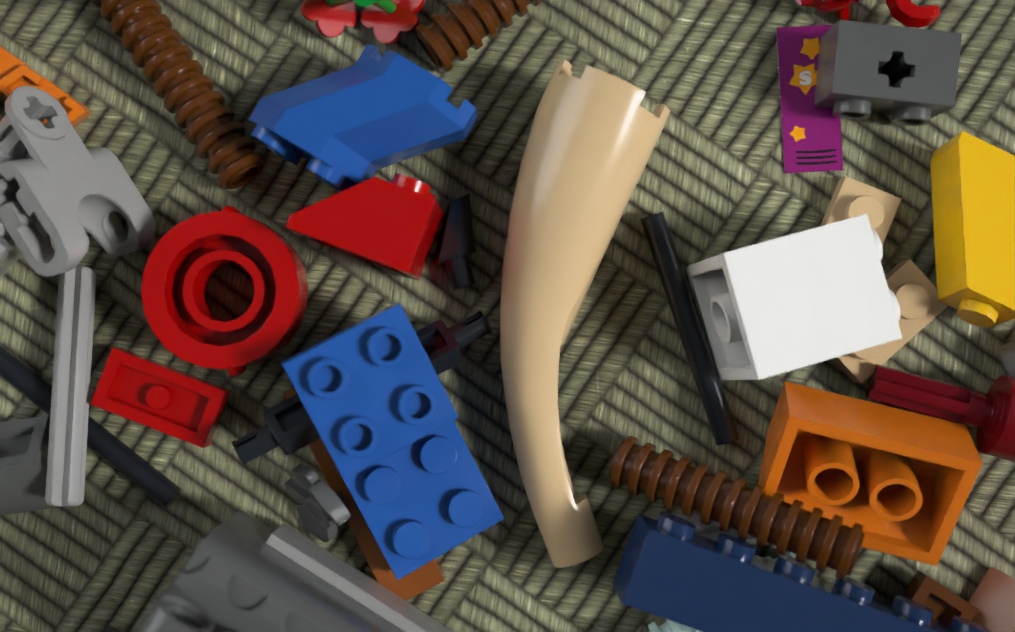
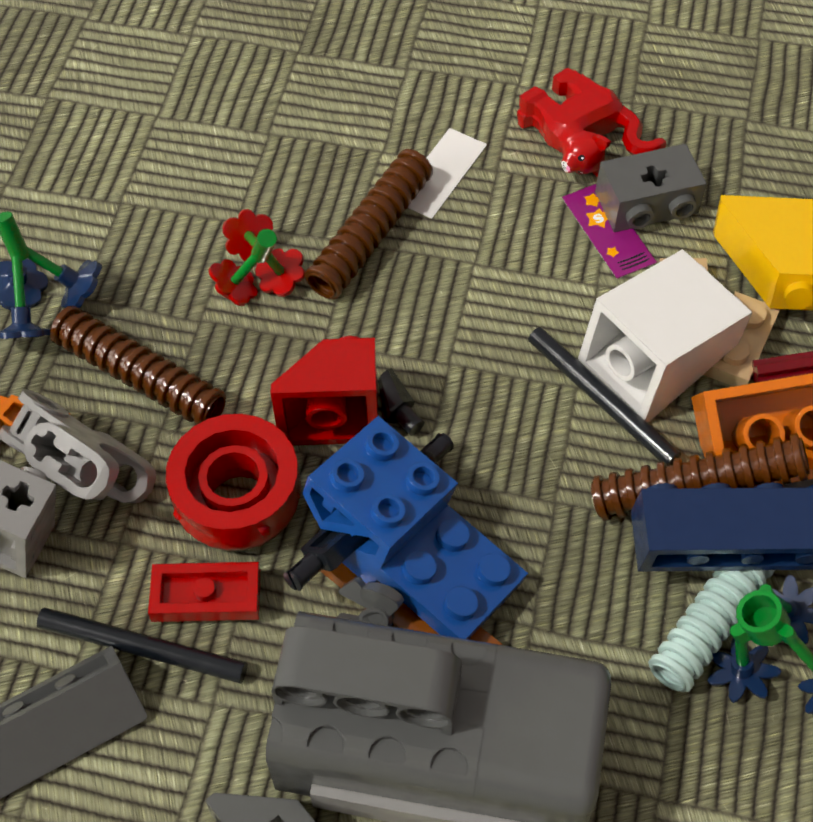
camera: 25 degrees left, 30 degrees down
(71, 388) = (128, 610): light grey axle -> none
(361, 118) = (285, 326): blue brick -> none
(566, 204) = (469, 339): tan brick -> none

